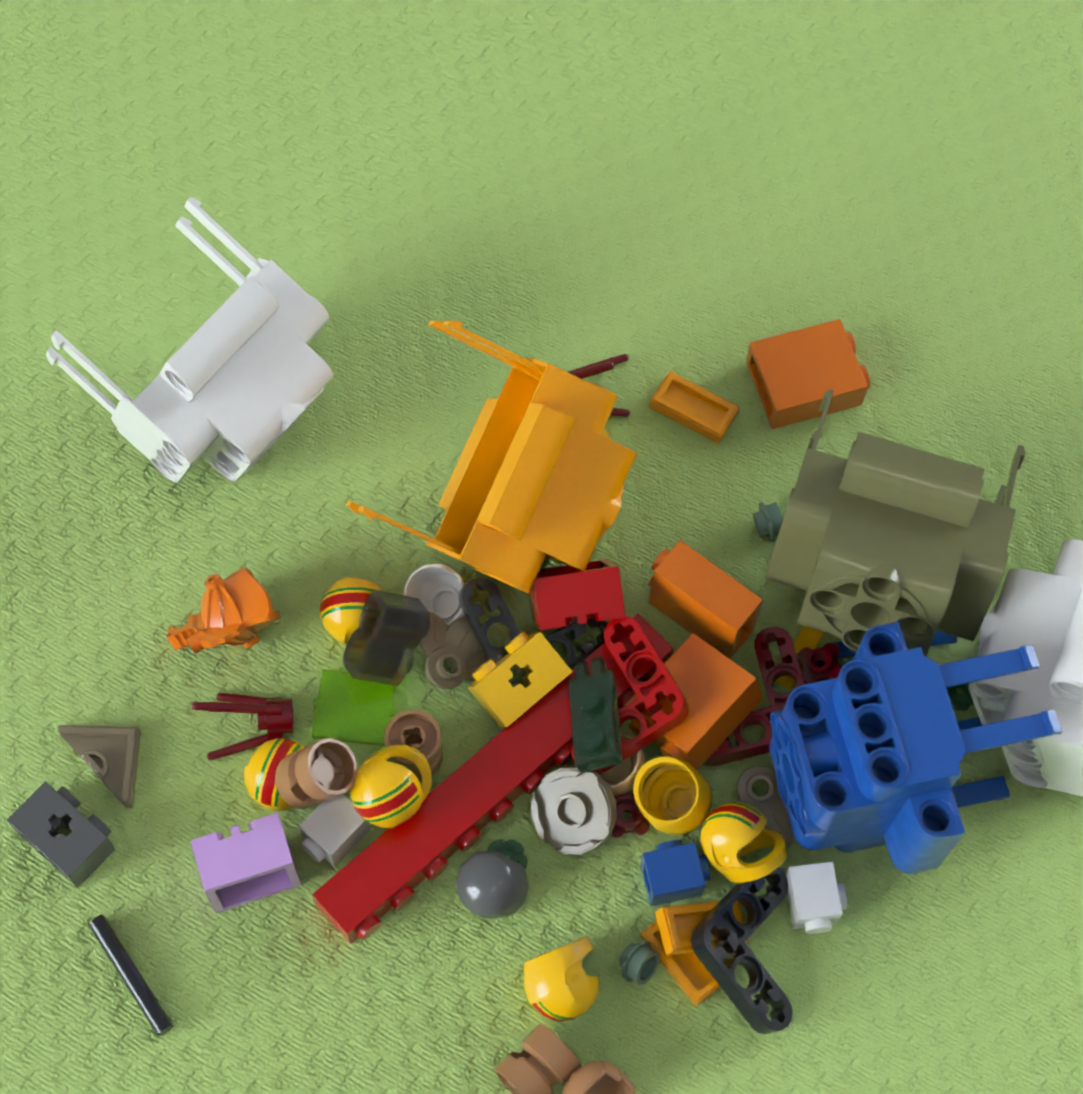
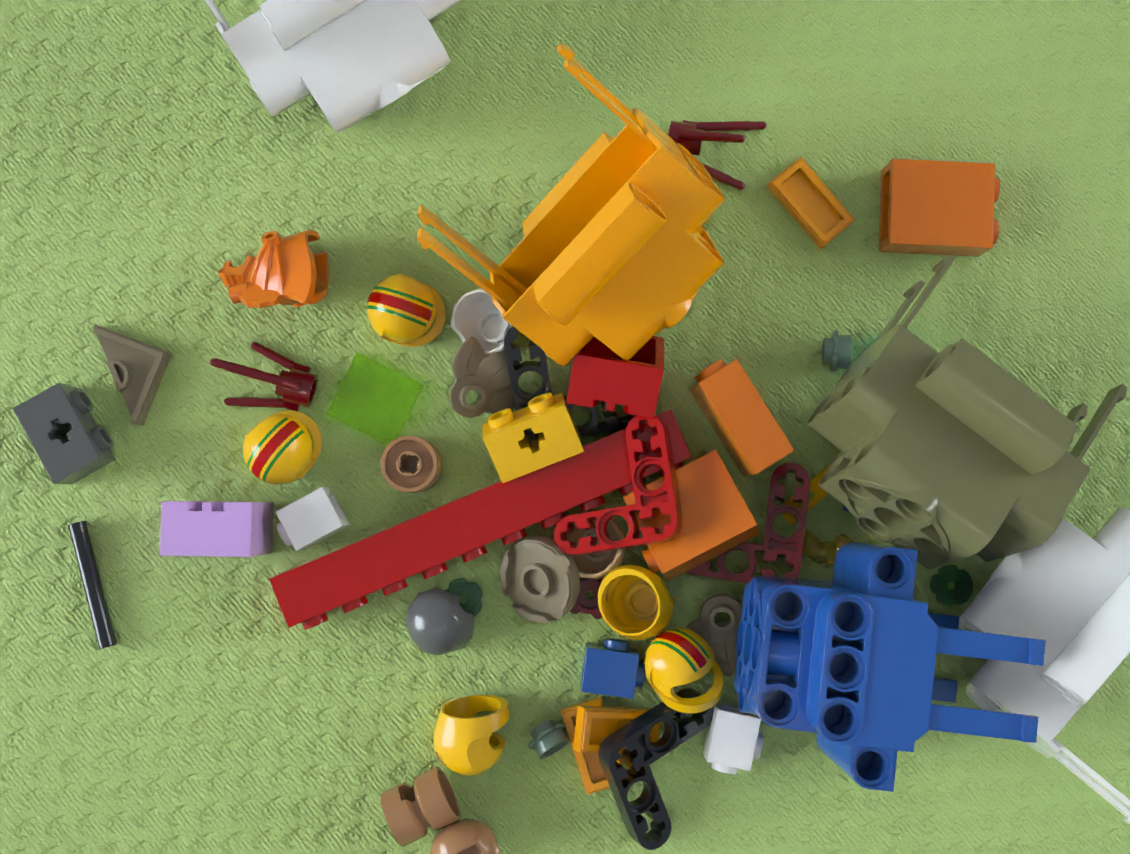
camera: 20 degrees right, 20 degrees up
(316, 773) = (302, 475): medium nougat wheel -> none
(386, 638) = (419, 352): clear smoke brick -> none
(389, 791) = (360, 518): yellow helmet -> none
(594, 717) = (588, 505): clear green hinge -> none
(810, 658) = (818, 523): dark red plate -> none

